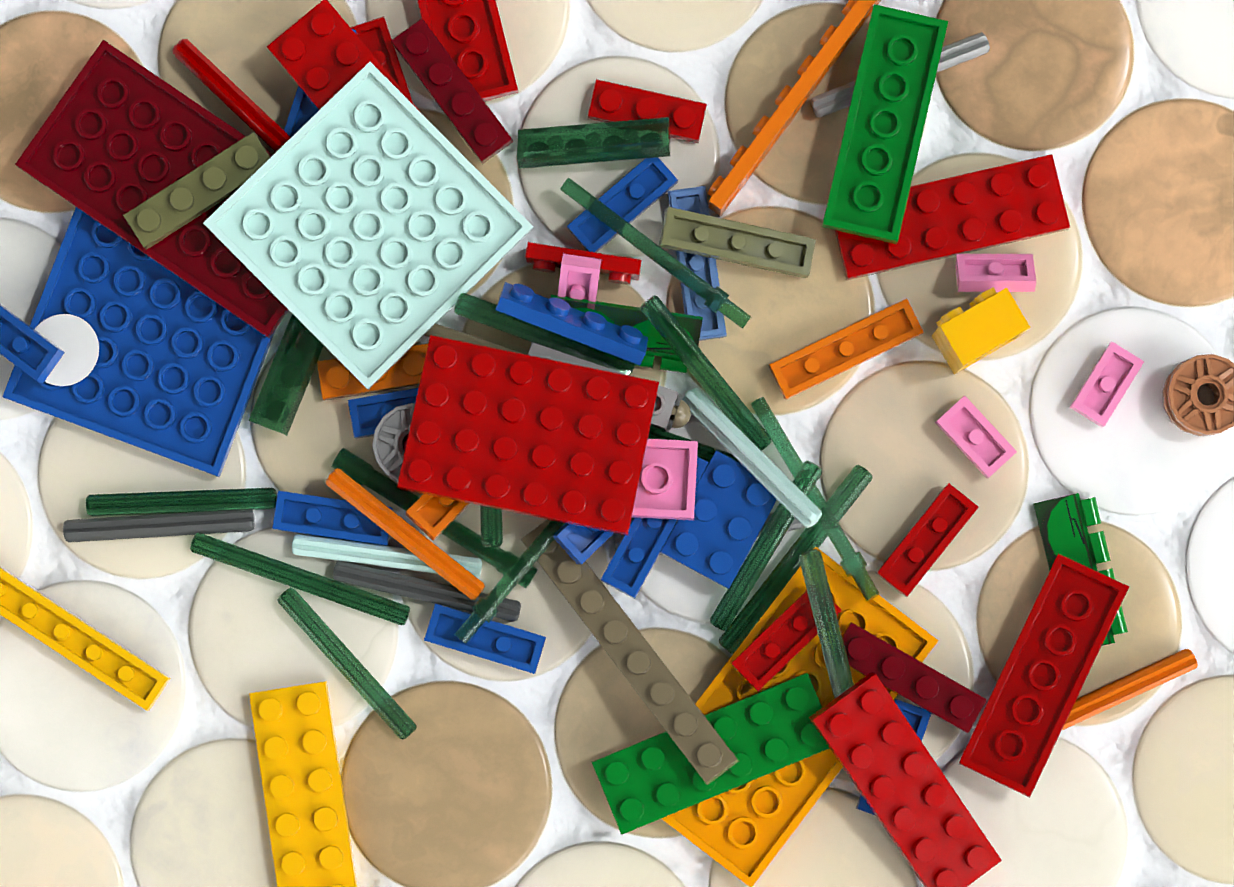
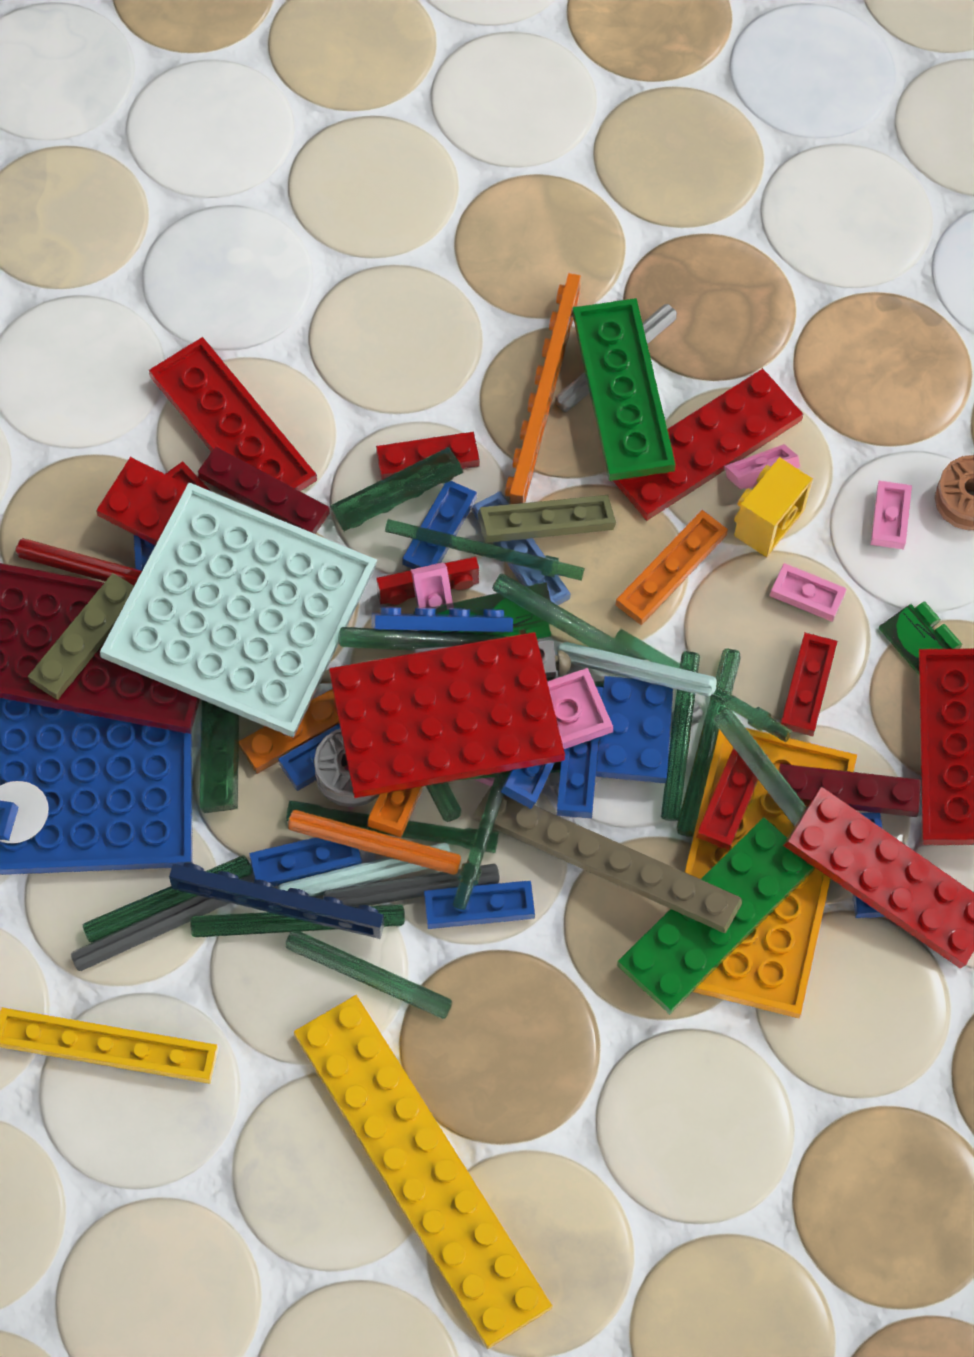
camera: 25 degrees left, 20 degrees down
(296, 567) = (264, 897): none -> dark blue plate

